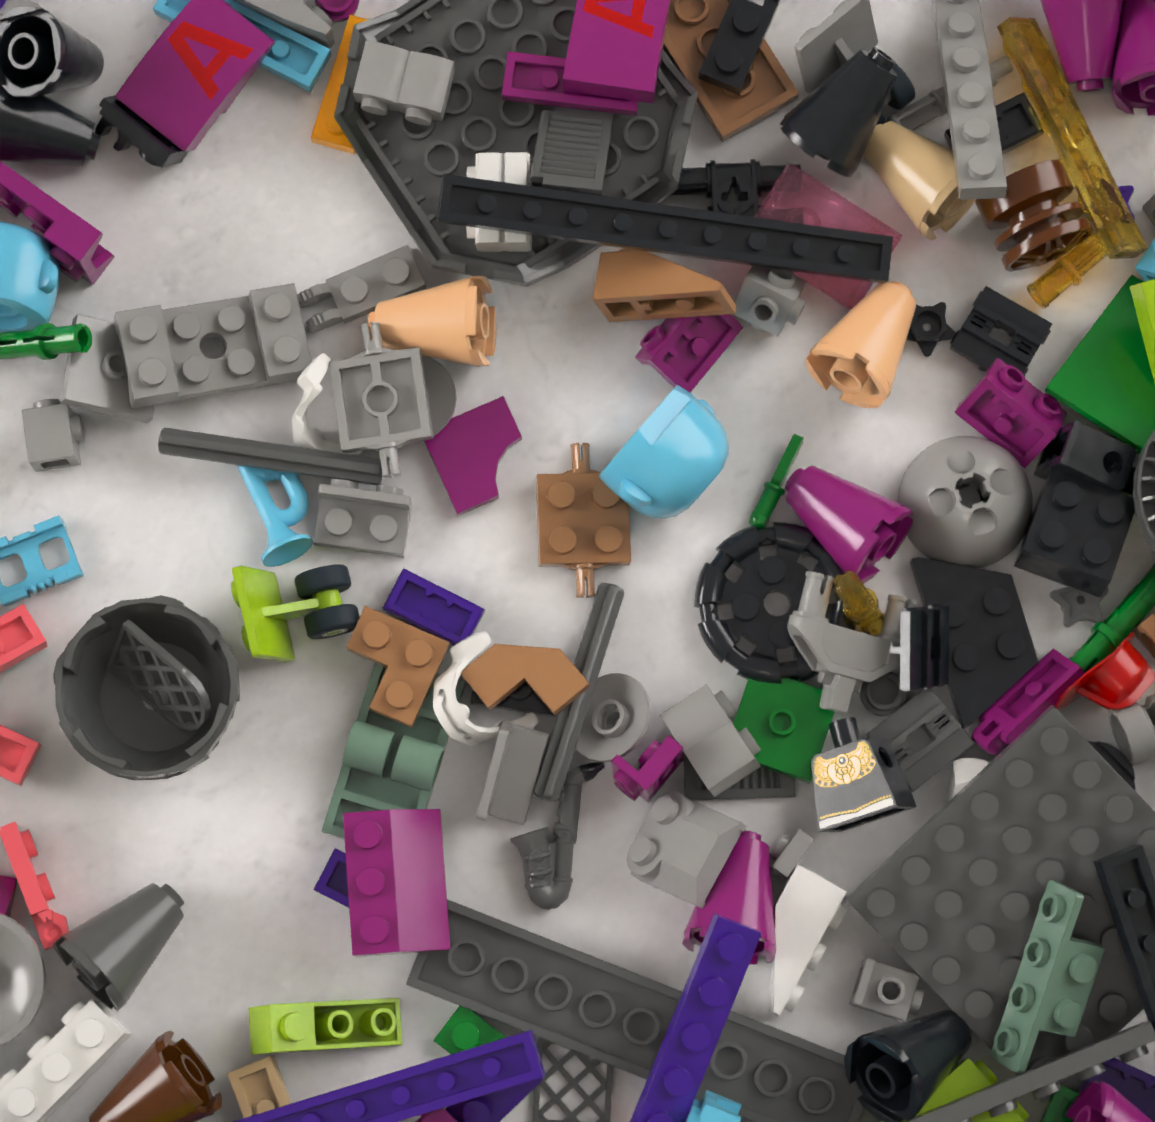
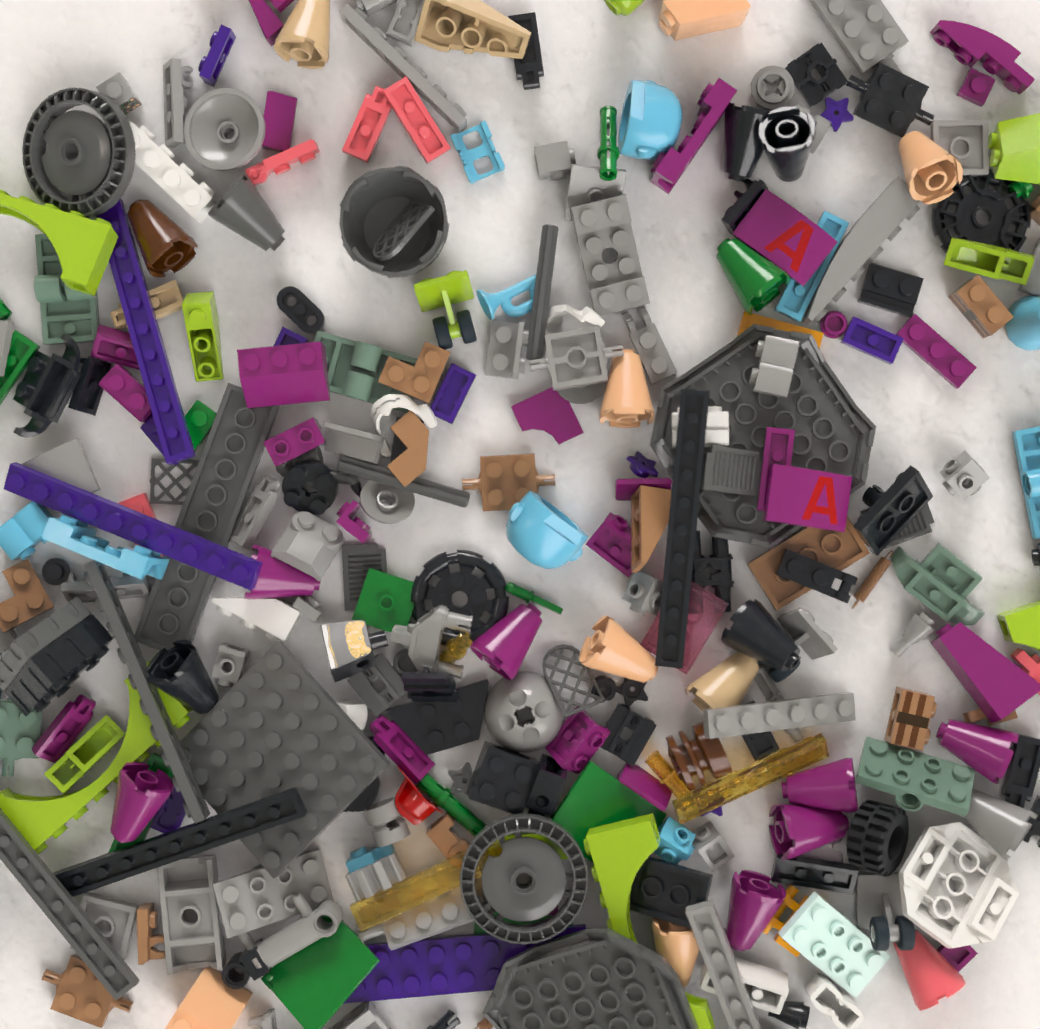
camera: 90 degrees right, 10 degrees up
(251, 124) = (750, 274): none -> green cone
(283, 857) = (301, 310): none -> black plate
(510, 868) = (294, 441): none -> magenta bracket
(560, 303) = (642, 466): none -> dark purple plate
(564, 858) = (302, 500): none -> black plate
(595, 328) = (626, 487): none -> magenta slope
(627, 941) = (255, 512): none -> light grey hinge
(711, 740) = (372, 560): light grey brick -> none
(931, 362) = (609, 684): none -> black plate
(942, 371) = (599, 699): none -> dark grey window
(1050, 980) = (230, 760): sand green bracket -> none
(1084, 306) = (645, 785): none -> magenta slope

